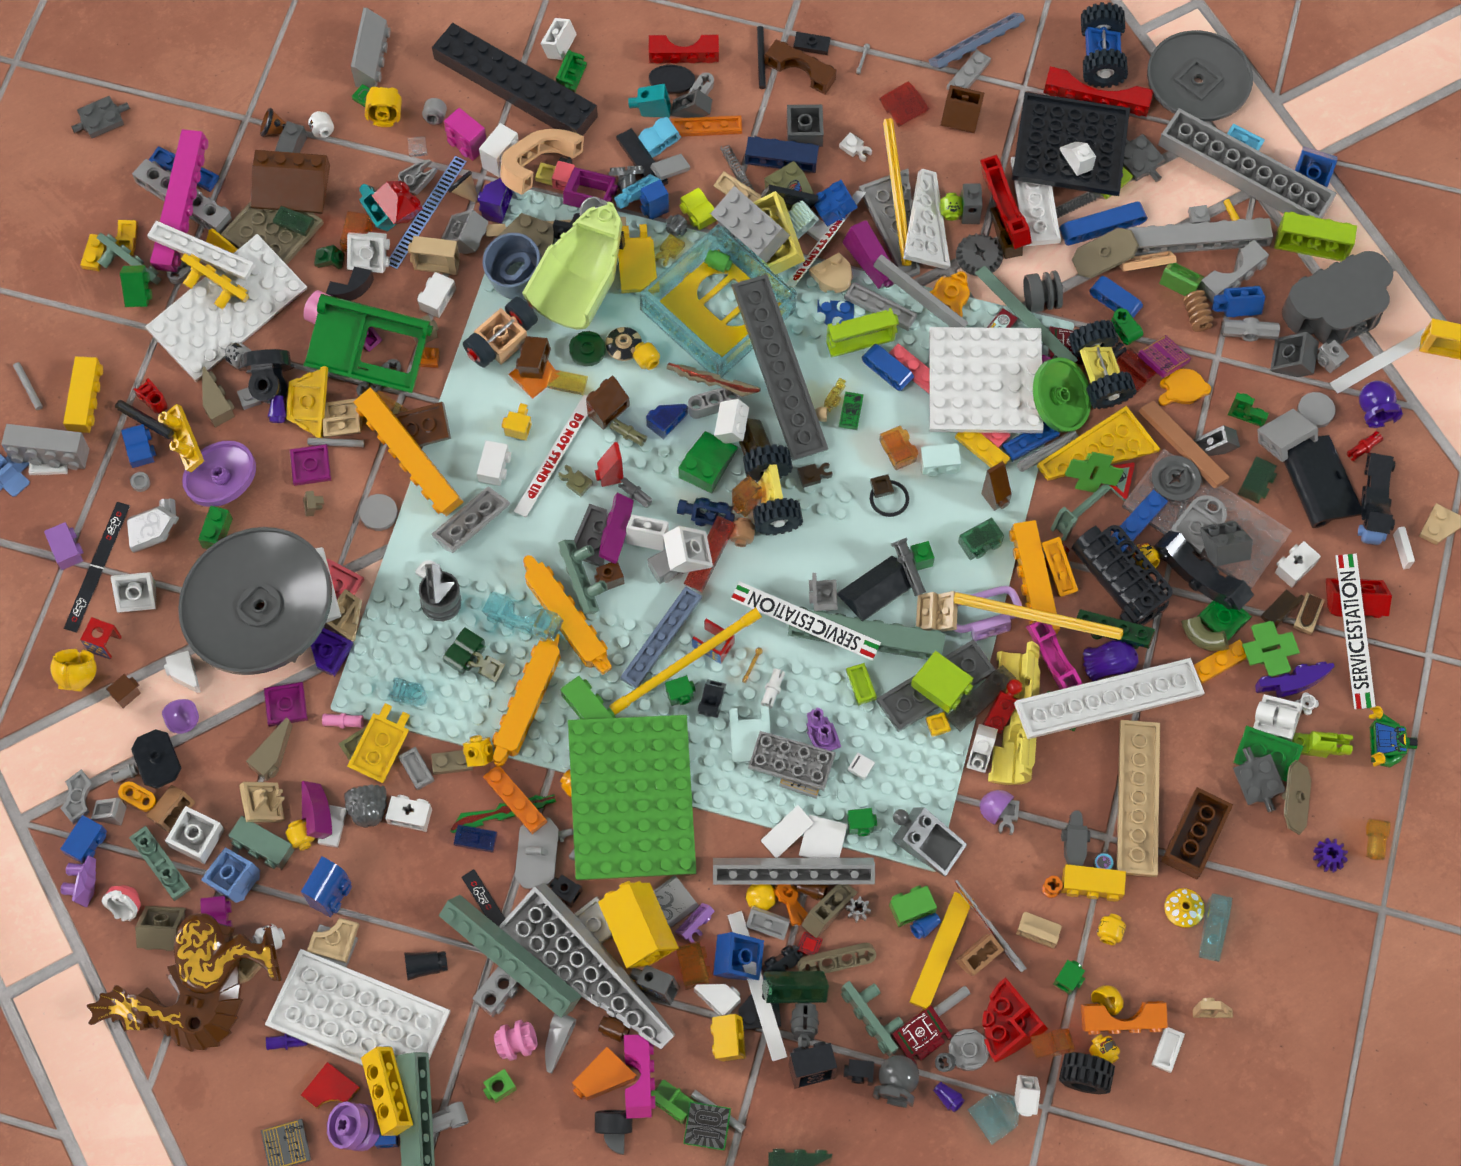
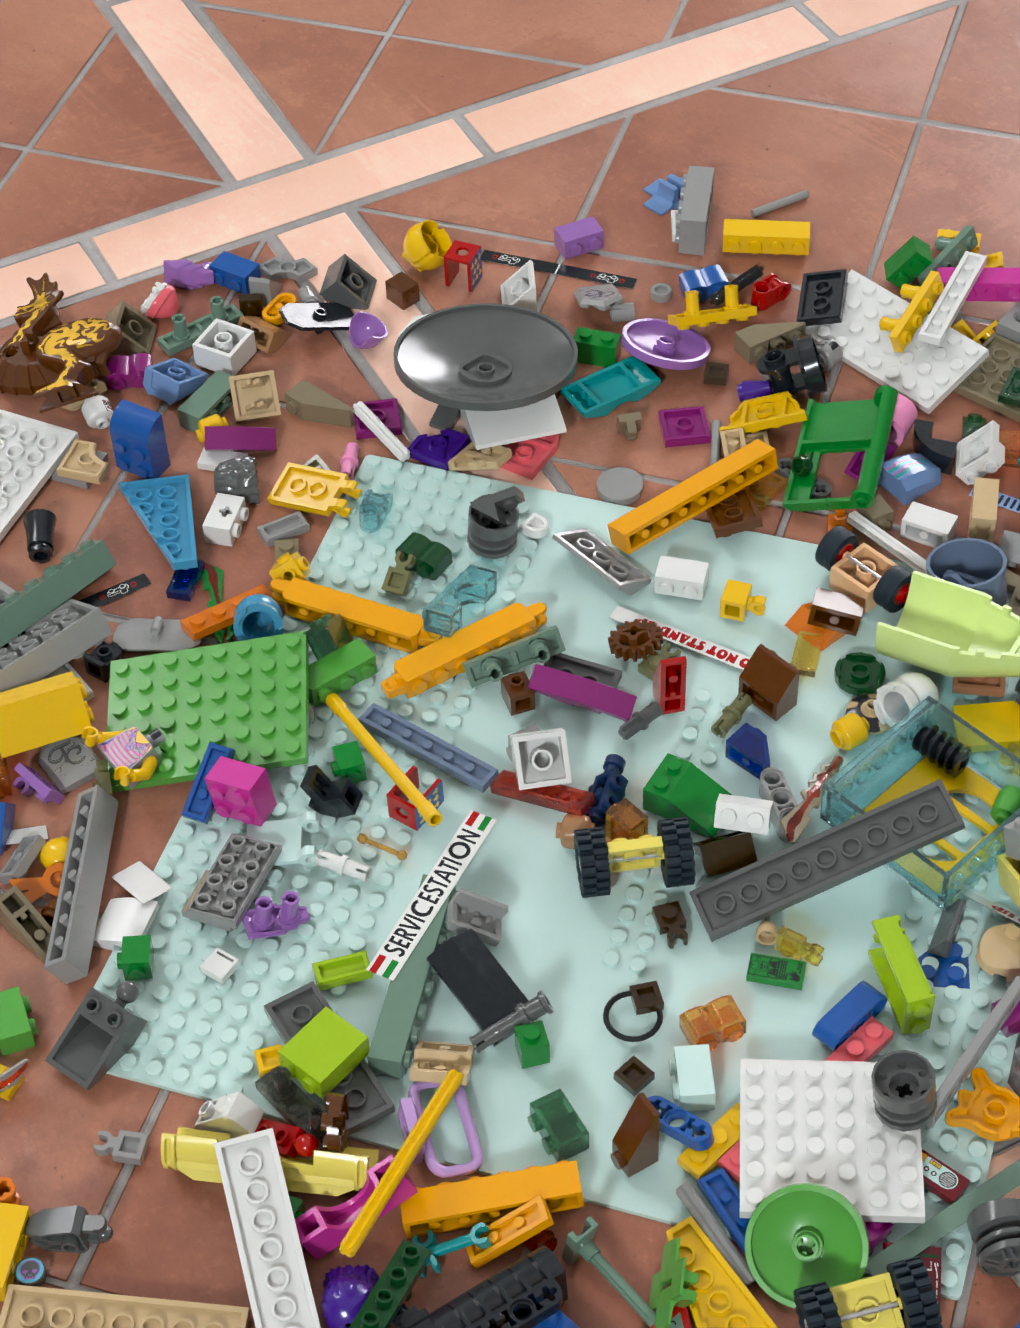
camera: 95 degrees right, 20 degrees down
(111, 739) = (348, 284): none -> dark grey slope
(133, 820) = (251, 305): none -> dark brown plate
(176, 351) = (822, 297): none -> black tile
(252, 438) = (716, 373): none -> dark brown plate
(260, 509) = (610, 387): none -> teal slope
(310, 695) = (381, 431): none -> white axle
(378, 377) = (801, 465): none -> dark green plate
(382, 298) = (909, 477): none -> medium blue slope
(397, 862) = (167, 515): none -> dark azure wing
(461, 318) = (887, 542): none -> white axle
(536, 768) = (257, 618): none -> dark azure tile
(553, 488) = (635, 640): none -> reddish brown gear
(562, 709) = (327, 635): none -> clear green brick
(627, 314) = (902, 695): none -> white tile
(646, 532) = (578, 723): white brick -> none
(673, 292) = (941, 750): none -> black piece
(681, 846) = (127, 752): none -> torso
(697, 871) = (102, 776): none -> olive plate
(703, 787) = (199, 802): none -> blue tile
(717, 760) = (240, 791): none -> dark pink brick
(814, 306) = (947, 929): none -> dark grey slope
(859, 904) = (19, 958): light grey gear -> none
(875, 303) = (959, 1016): light grey tile -> none
(939, 495) = (634, 1075): none -> dark brown plate
(963, 476) = (683, 1133): none -> blue beam
(967, 317) = (904, 1090): none -> dark grey wheel
(994, 804) = (145, 1130): medium lavender helmet -> none
(1005, 664) = (335, 1122): none -> reddish brown plate
(1067, 598) = (452, 1245): none -> teal bar

